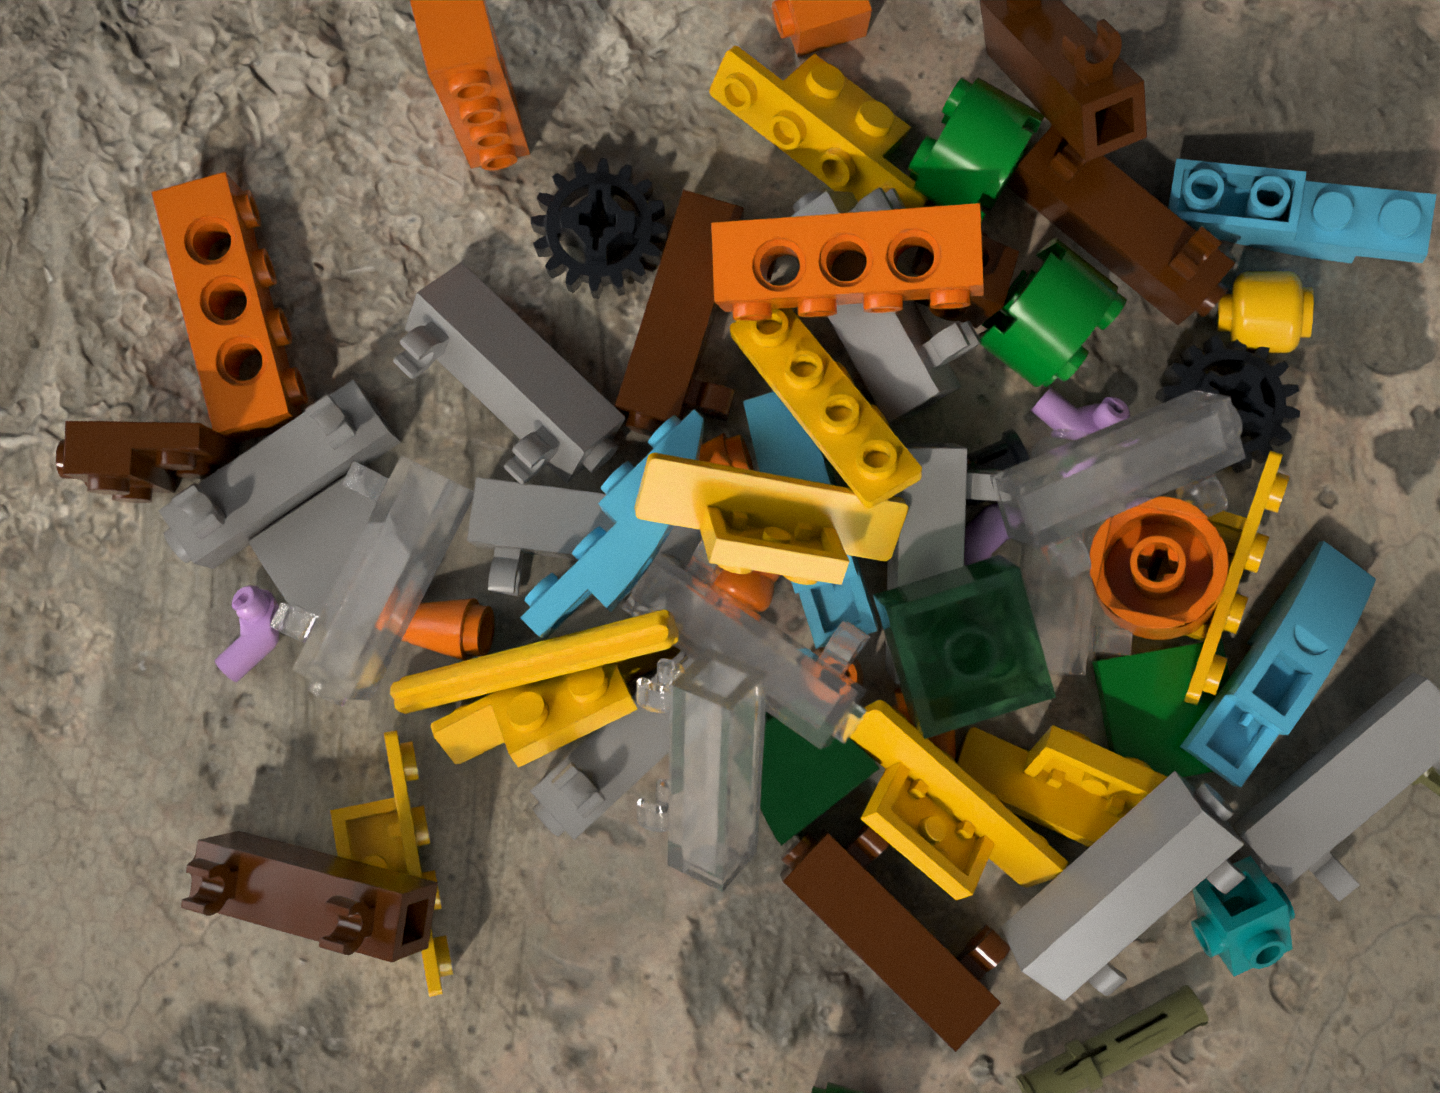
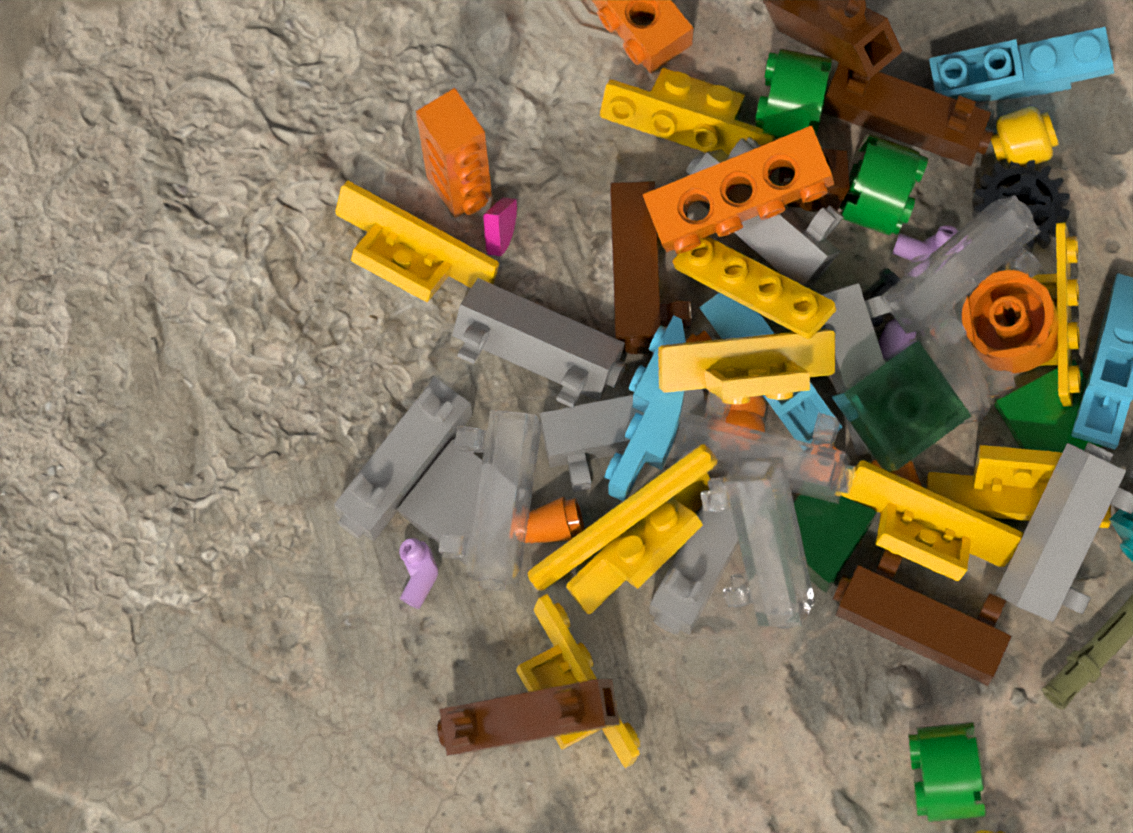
camera: 15 degrees left, 10 degrees down
(140, 457) = (299, 473): reddish brown plate -> none
(191, 221) = (359, 422): orange brick -> none
(385, 190) = (407, 248): none -> yellow bracket
(518, 198) = (500, 225): none -> dark pink tile
(576, 222) = (576, 221): black gear -> none

